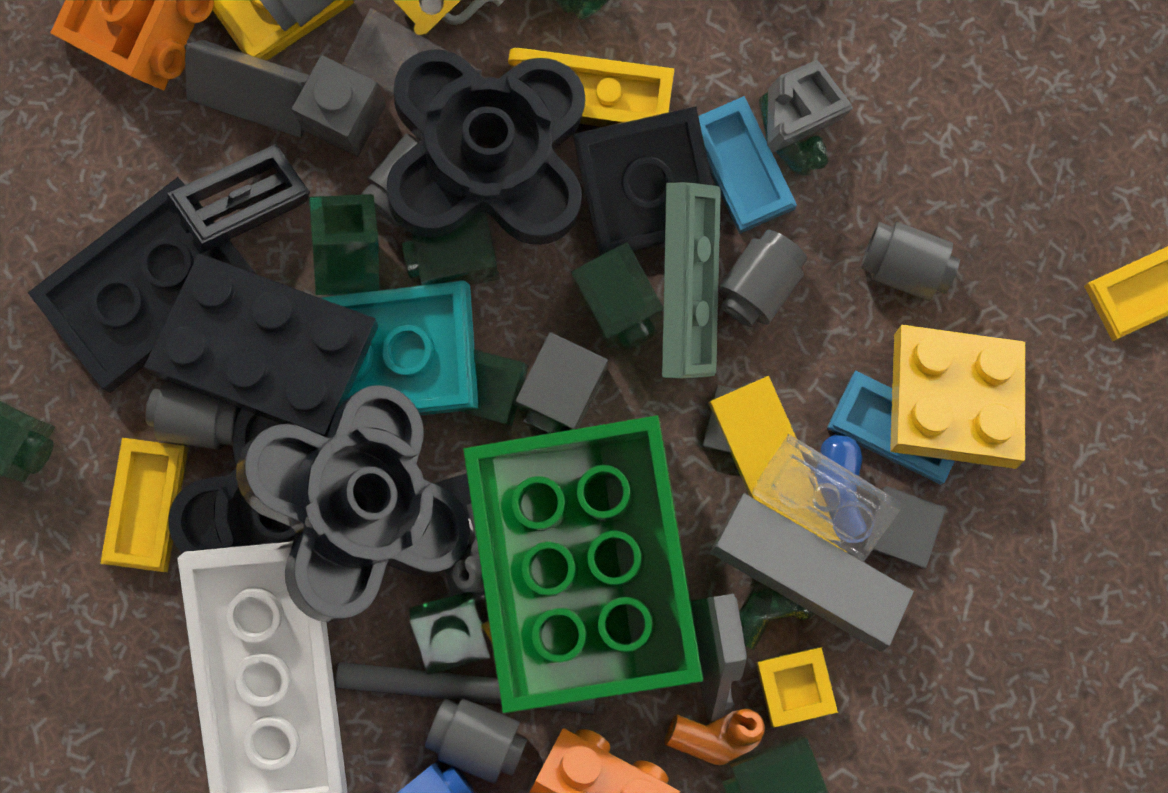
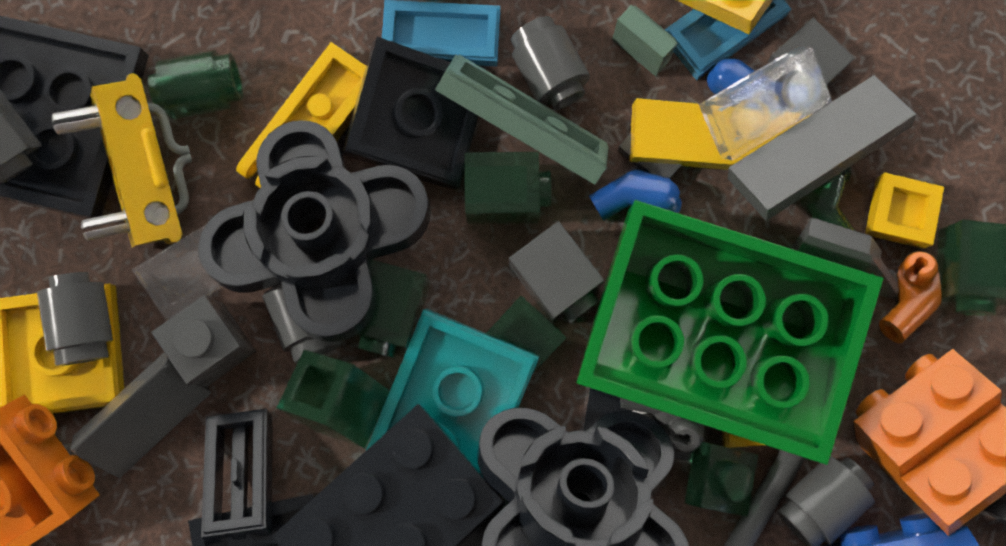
camera: 65 degrees left, 0 degrees up
(684, 426) = (636, 186): none -> blue arm
(832, 355) = (644, 39): none -> sand green tile

